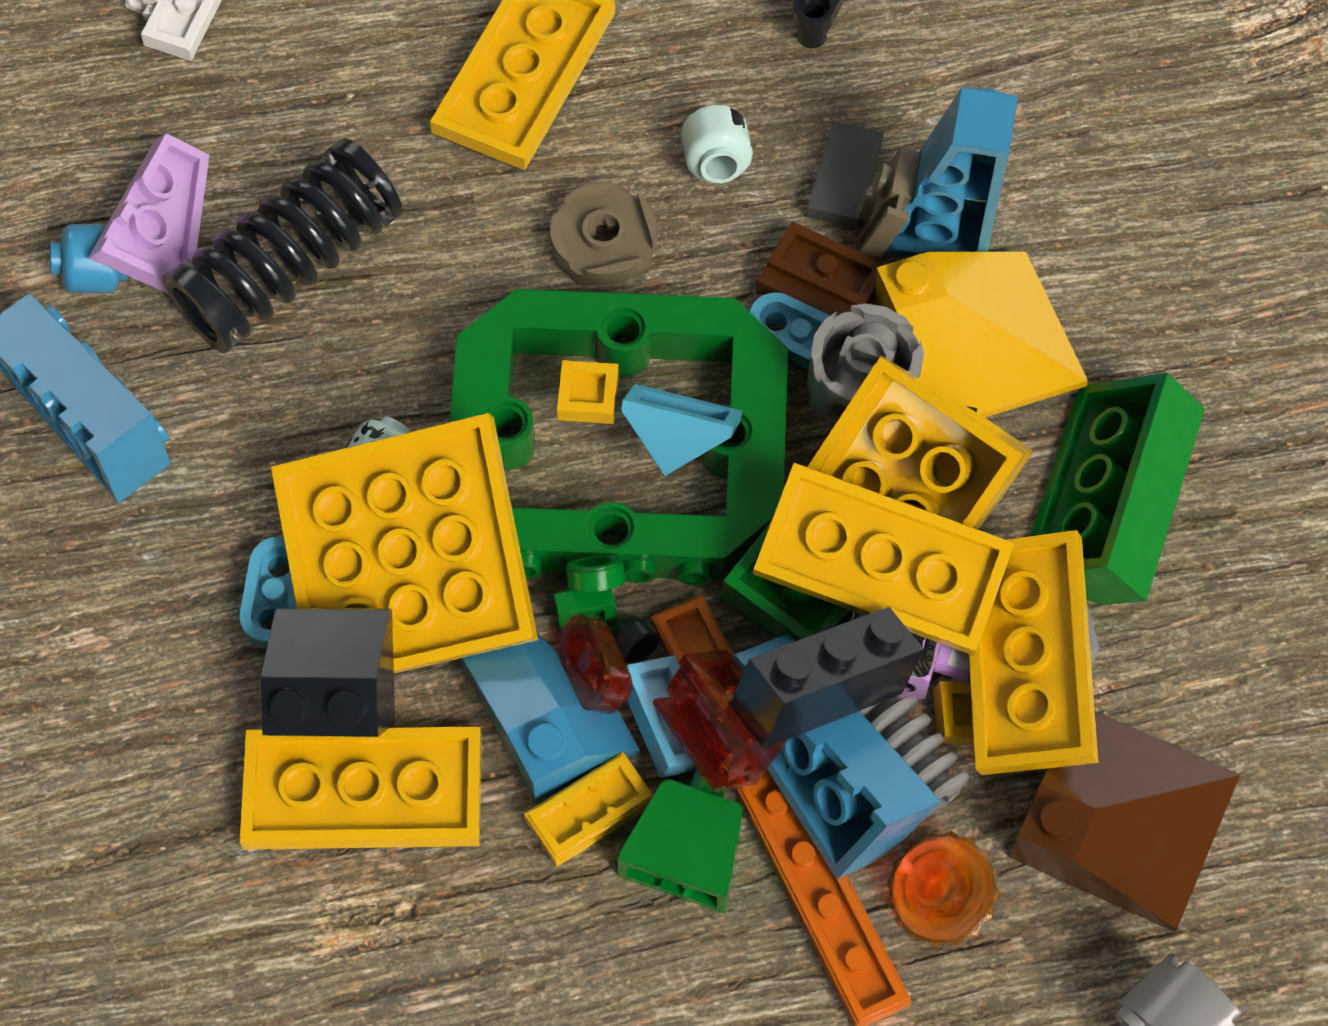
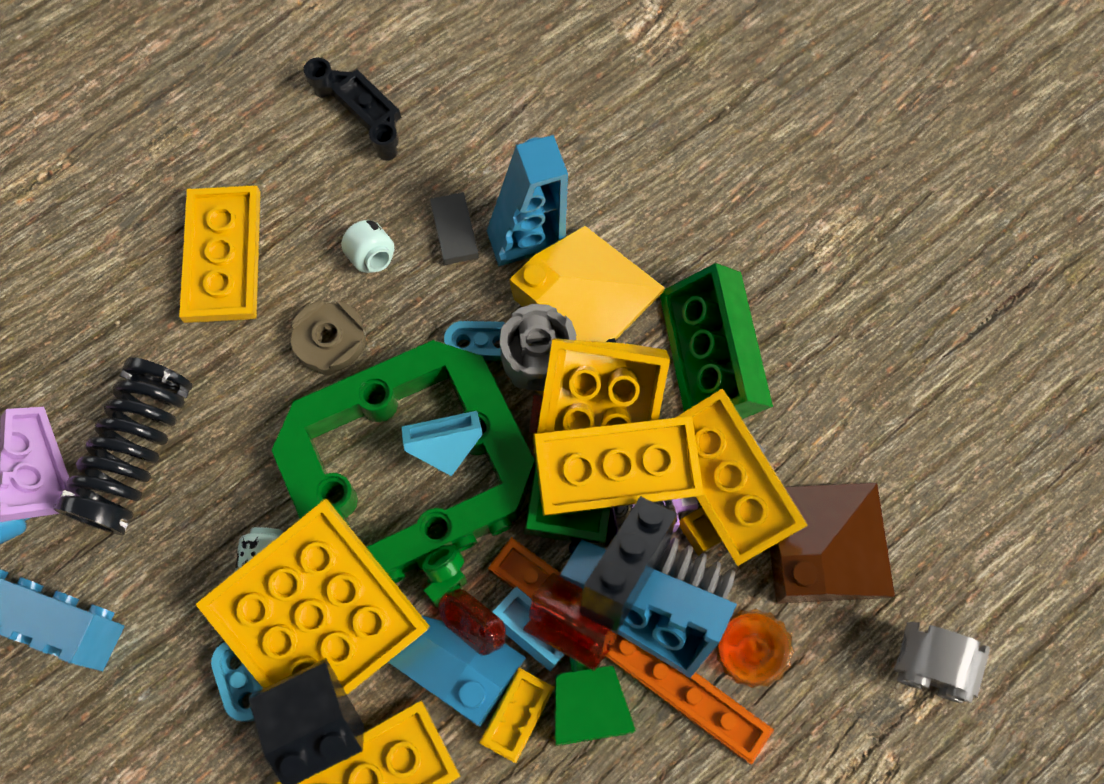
camera: 30 degrees left, 5 degrees up
(587, 392) = (376, 448): yellow plate -> none
(635, 638) = (484, 588): black hinge -> none
(819, 272) = (474, 298): reddish brown plate -> none
(885, 203) = (492, 237): dark tan plate -> none

